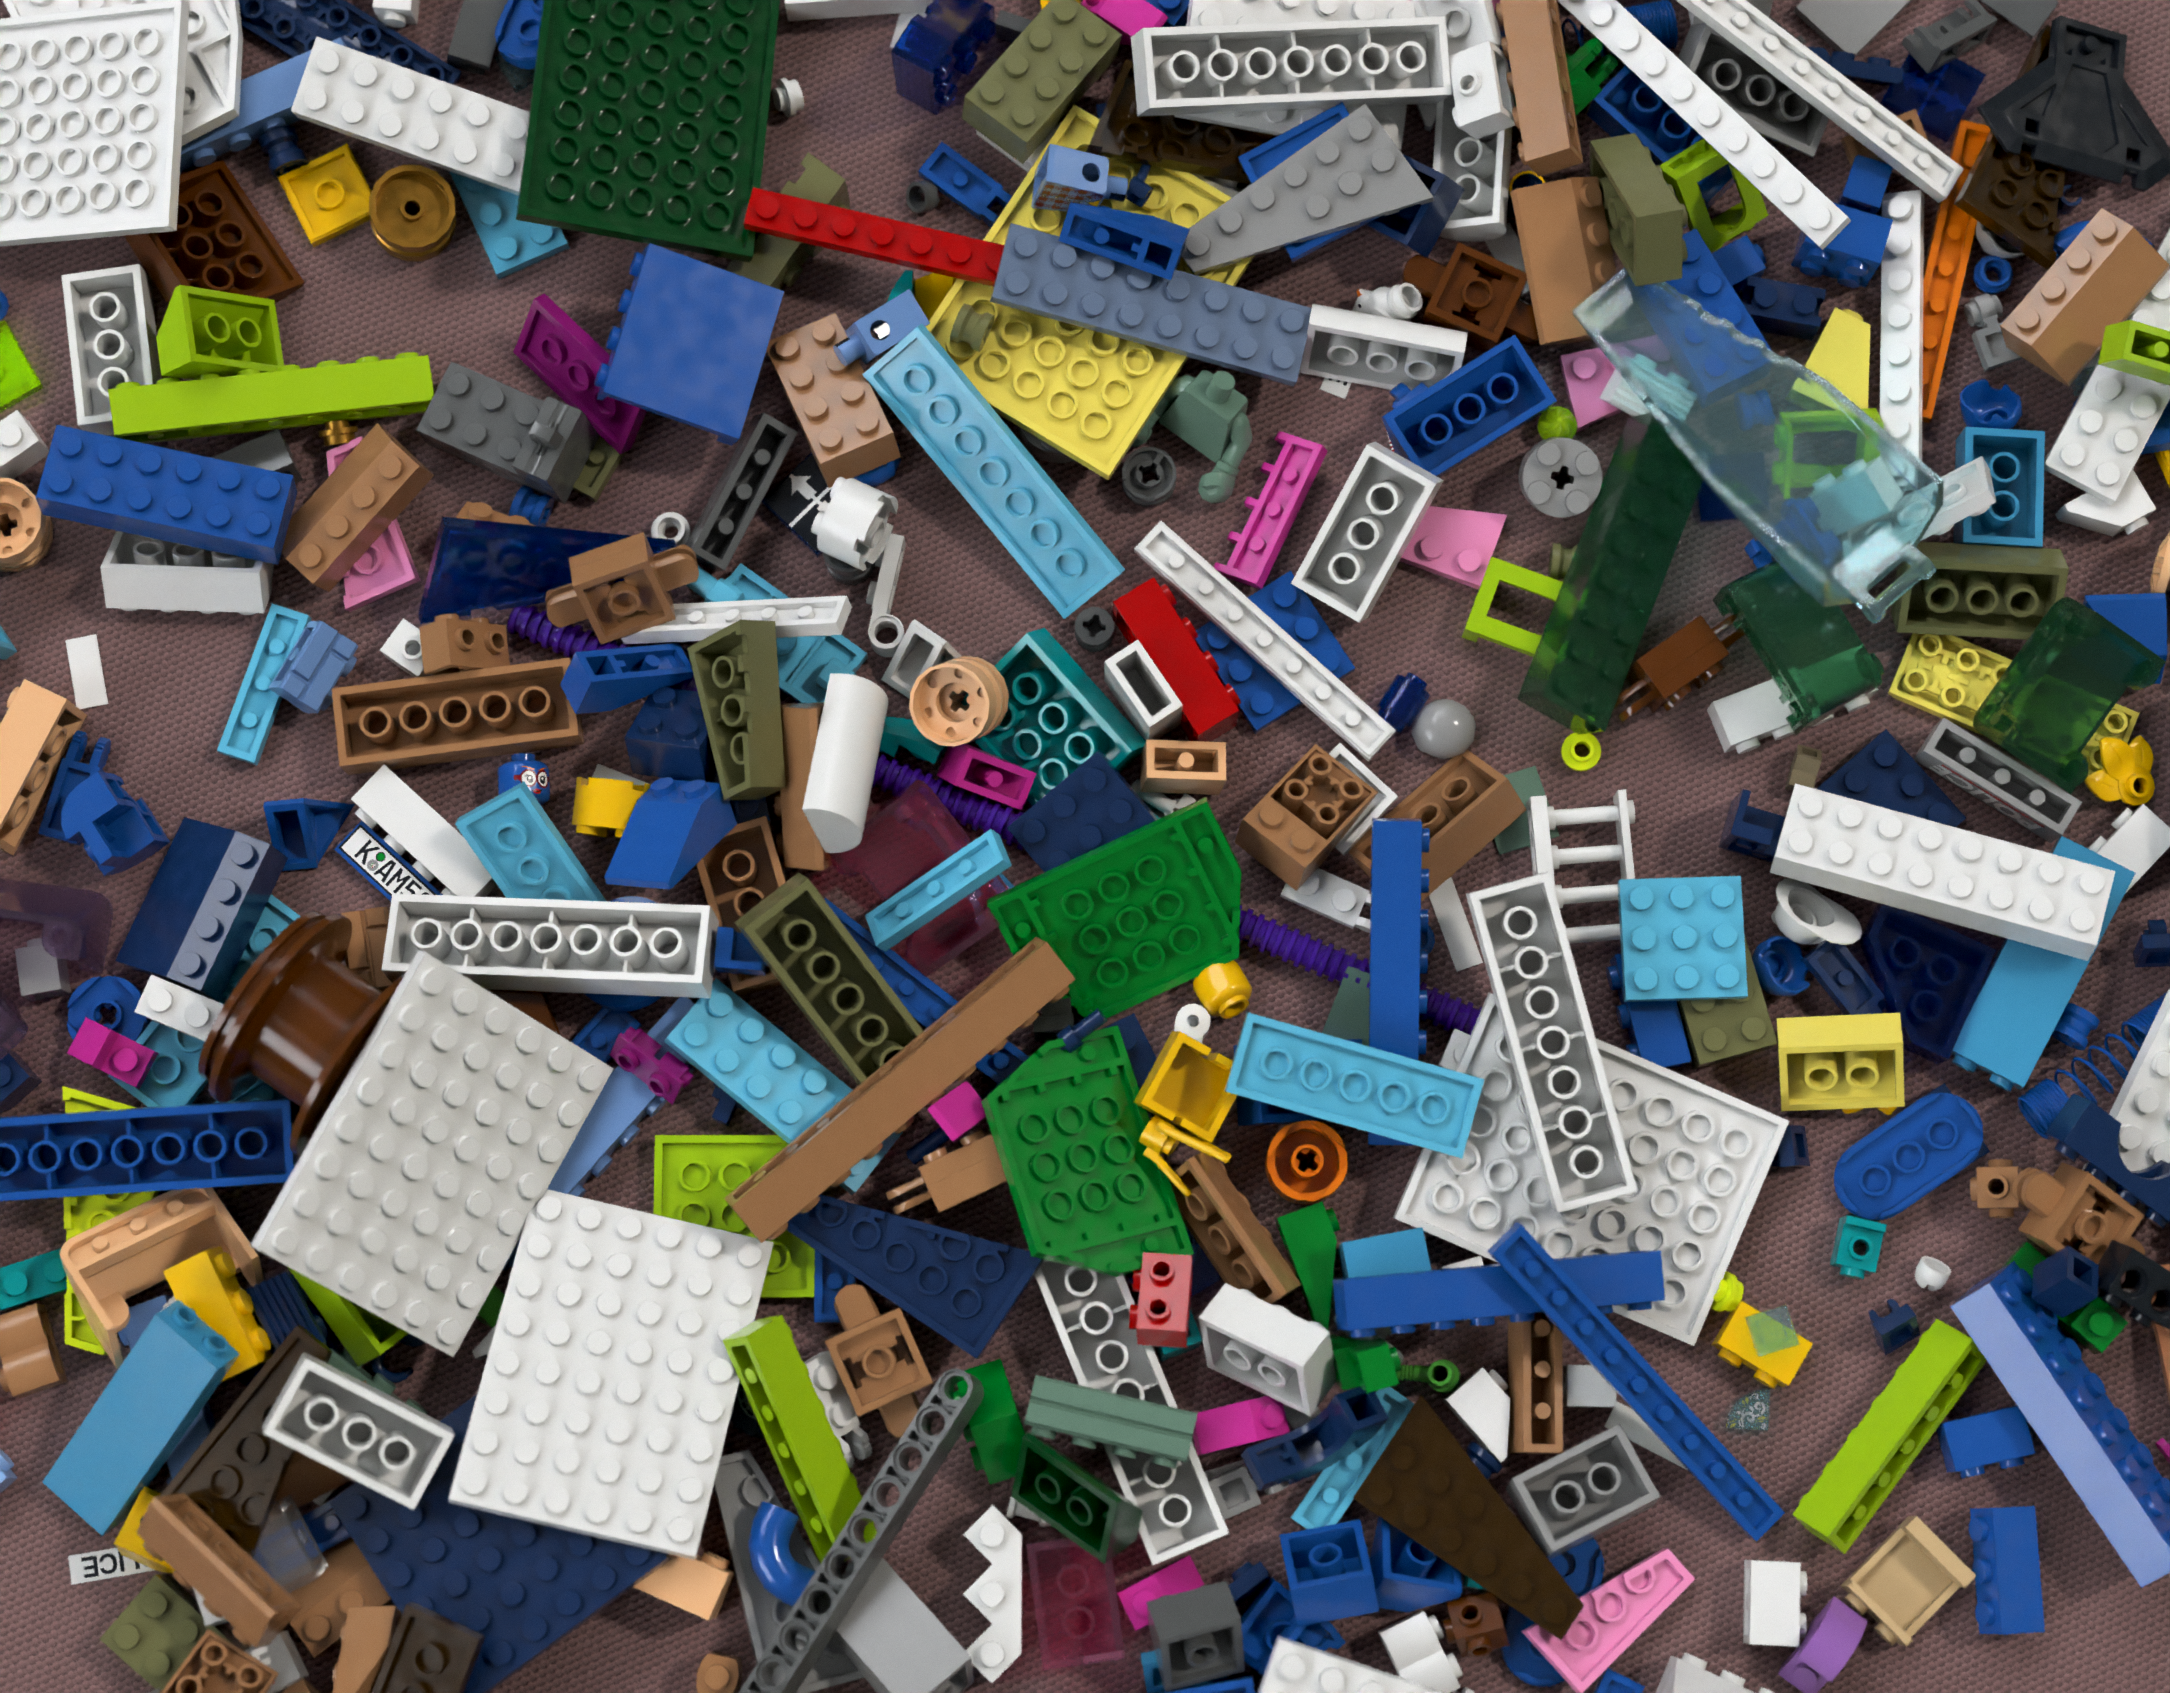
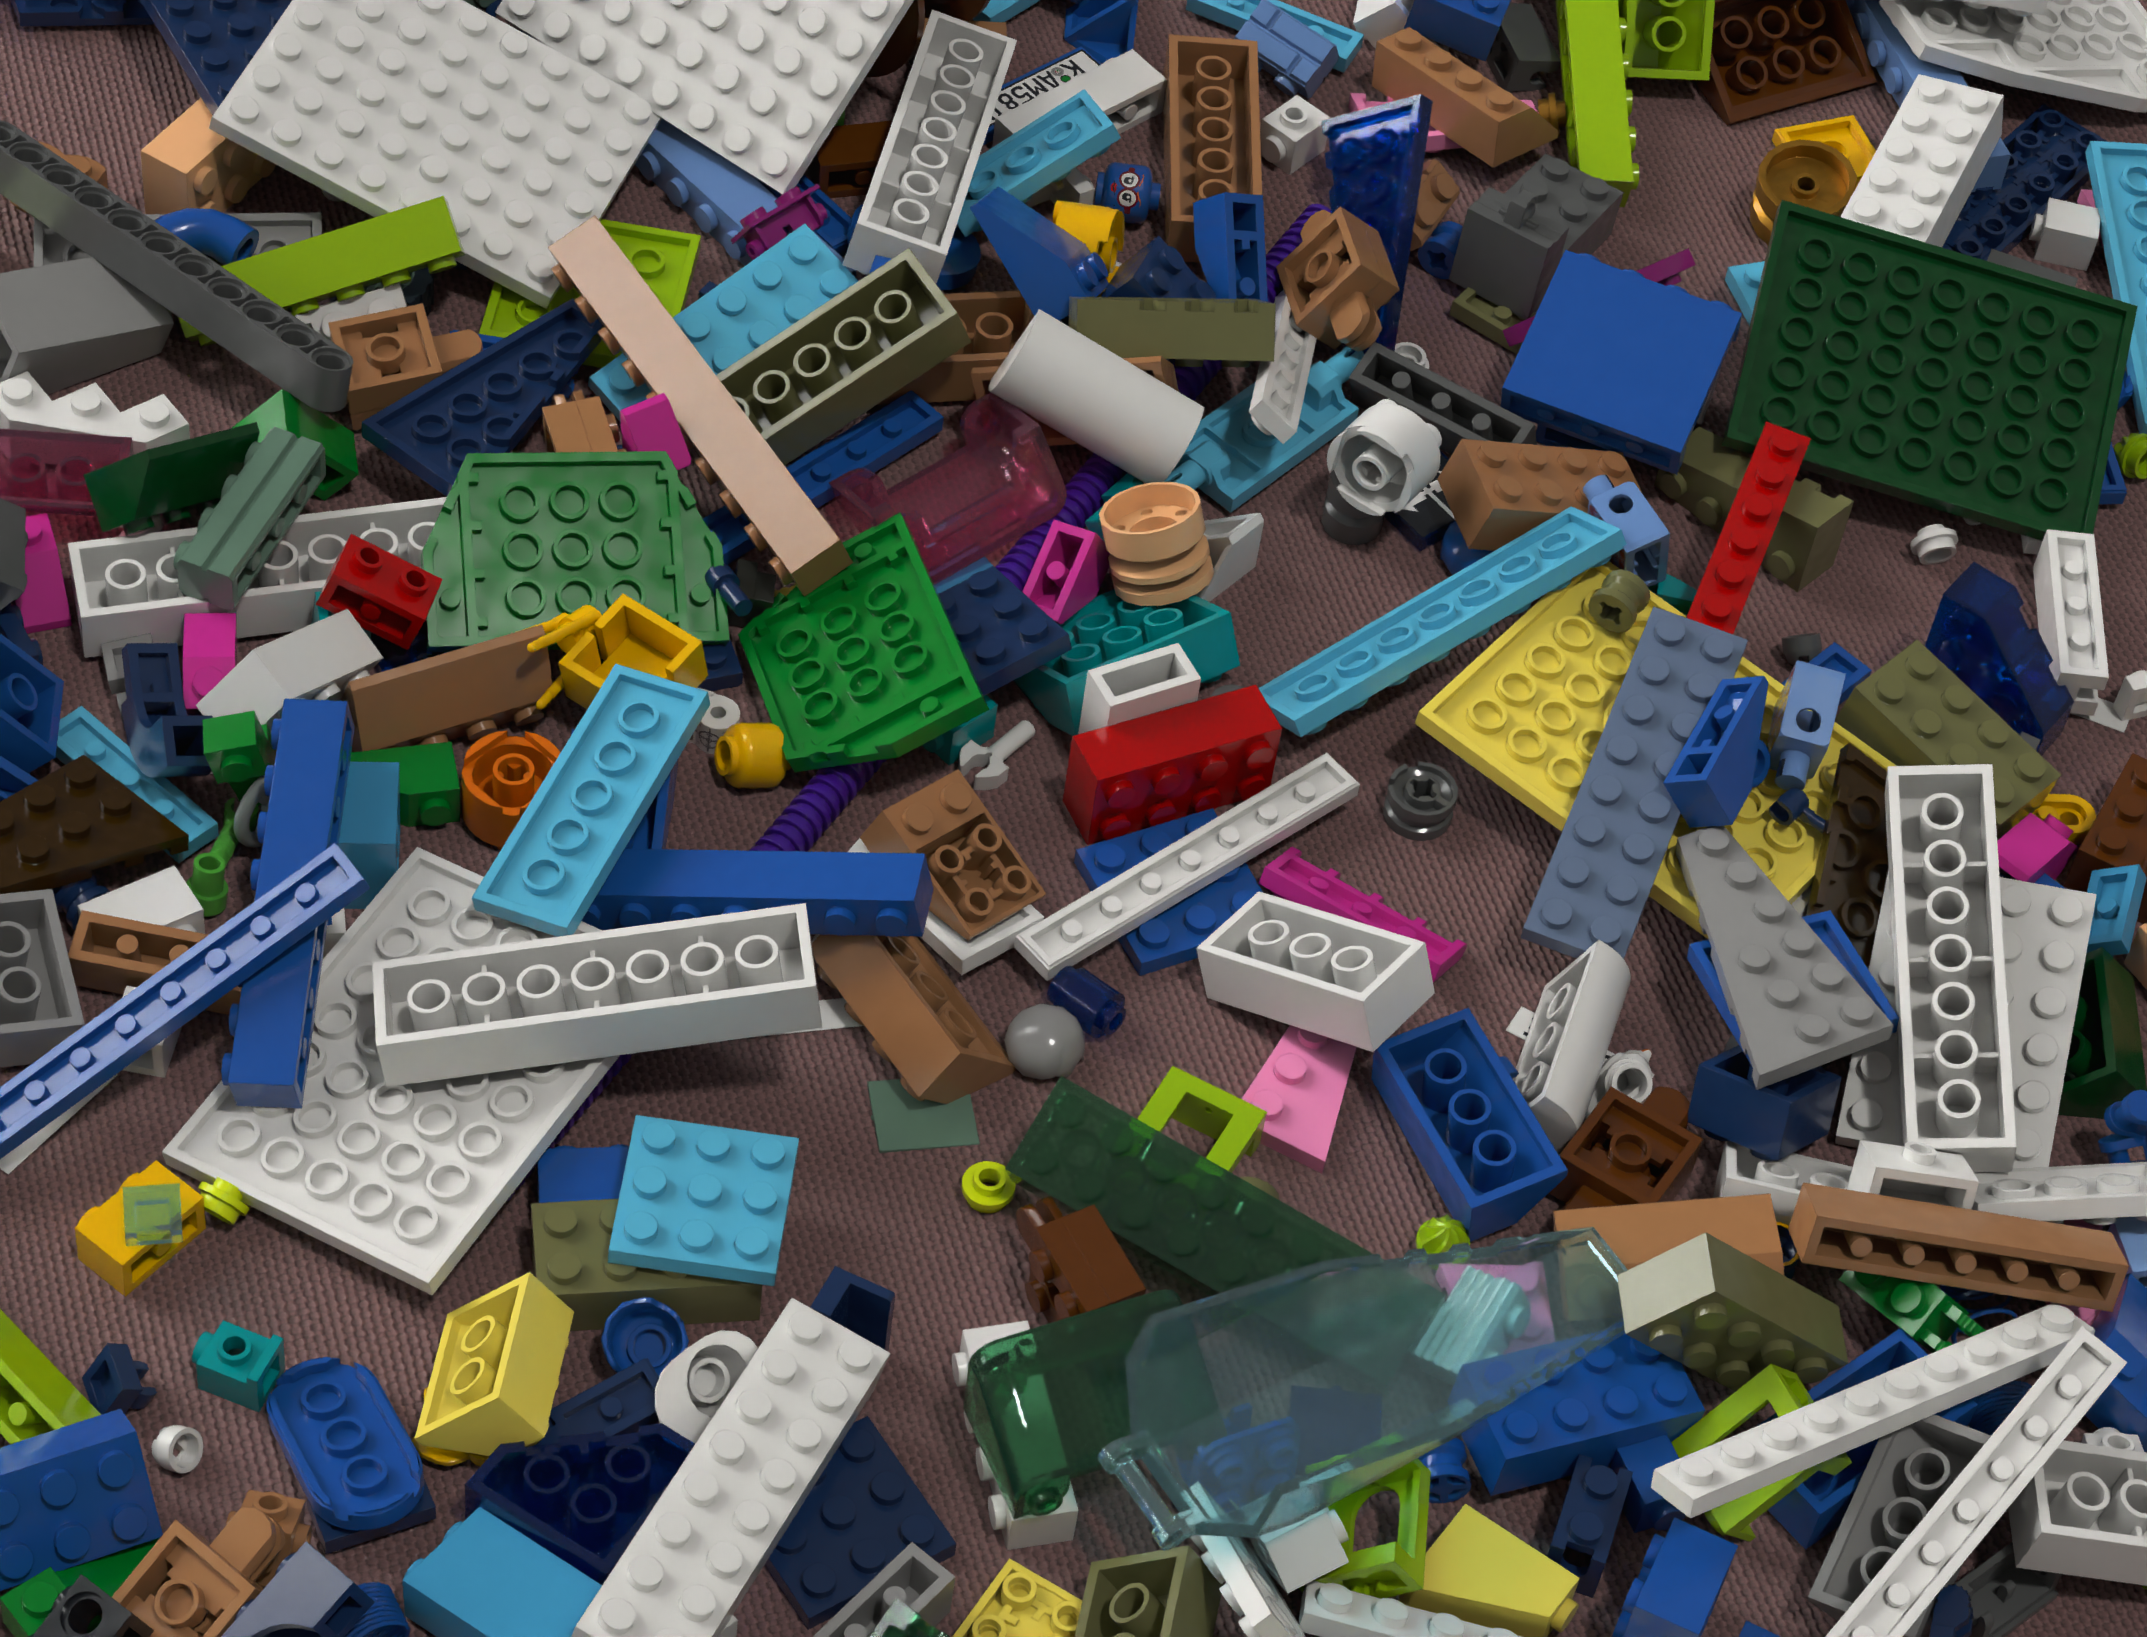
camera: 90 degrees right, 30 degrees down
(282, 150) = (1877, 117): dark blue wheel -> none
(462, 645) = (1290, 155): medium nougat brick -> none
(882, 593) = (1309, 530): white plate -> none
(938, 890) = (929, 489): medium azure plate -> none
(1183, 767) = (1039, 754): light nougat brick -> none
(1210, 419) = (1479, 863): sand green torso -> none
(1547, 857) = (850, 1113): white fence -> none
(1572, 496) = (1370, 1201): light grey brick -> none
(1750, 1412) = (53, 1210): clear light blue tile -> none
(1792, 1149) = (395, 1313): dark blue tile -> none
(1804, 767) = (916, 1433): dark tan piece -> none
(2065, 1281) = (109, 1548): dark blue brick -> none

